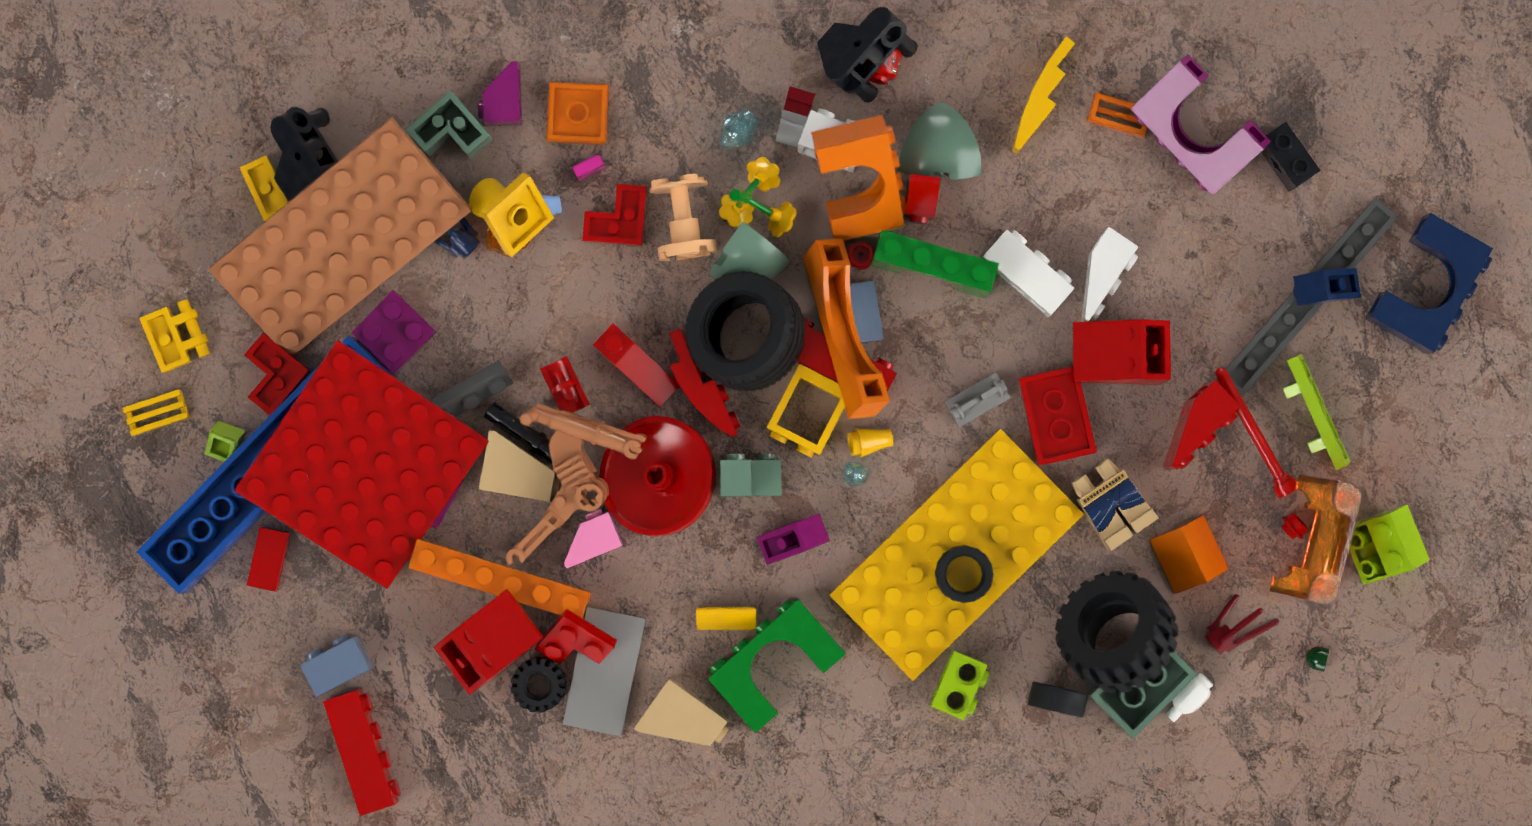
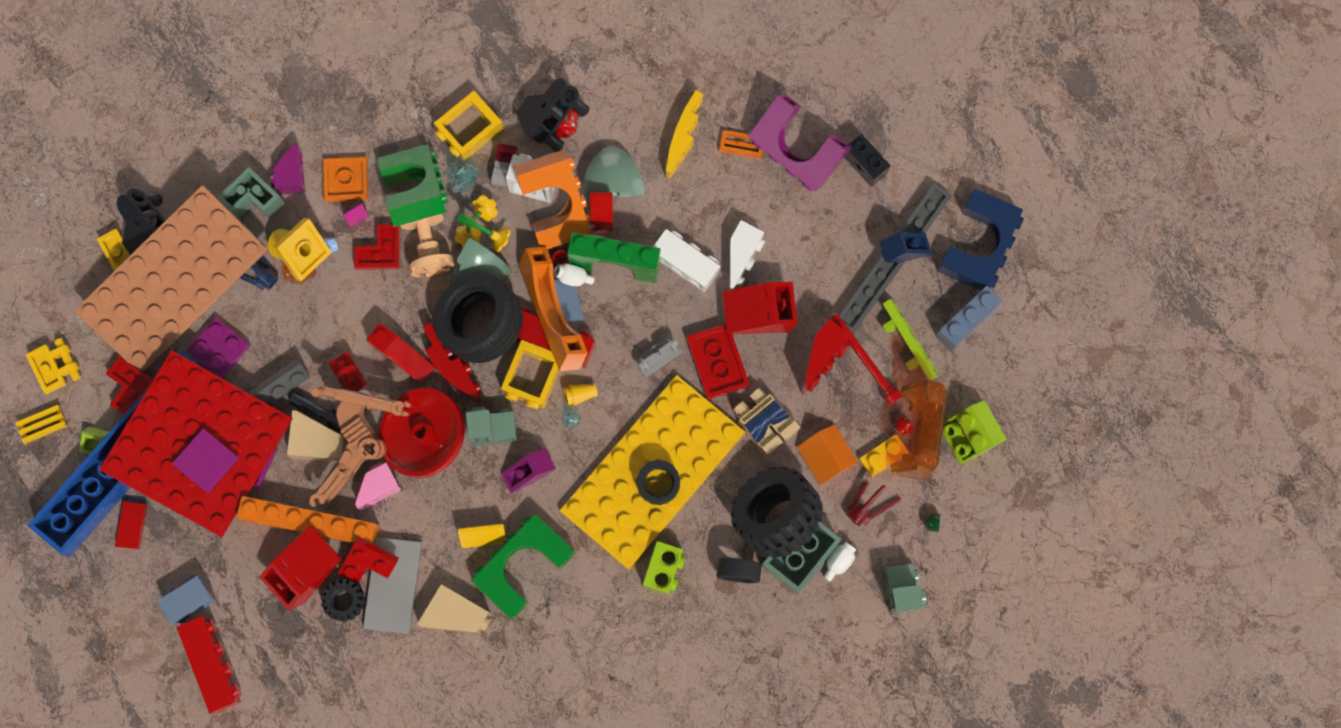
camera: 10 degrees left, 10 degrees down
(373, 490) = (205, 460): none -> magenta tile
(687, 164) = (423, 200): none -> green arch
(773, 36) = (495, 126): none -> yellow window
(874, 279) = (572, 275): none -> white plant
(1263, 563) = (883, 455): none -> yellow plate
(1268, 745) = (902, 590): none -> sand green brick
(1400, 391) = (969, 318): none -> sand blue brick

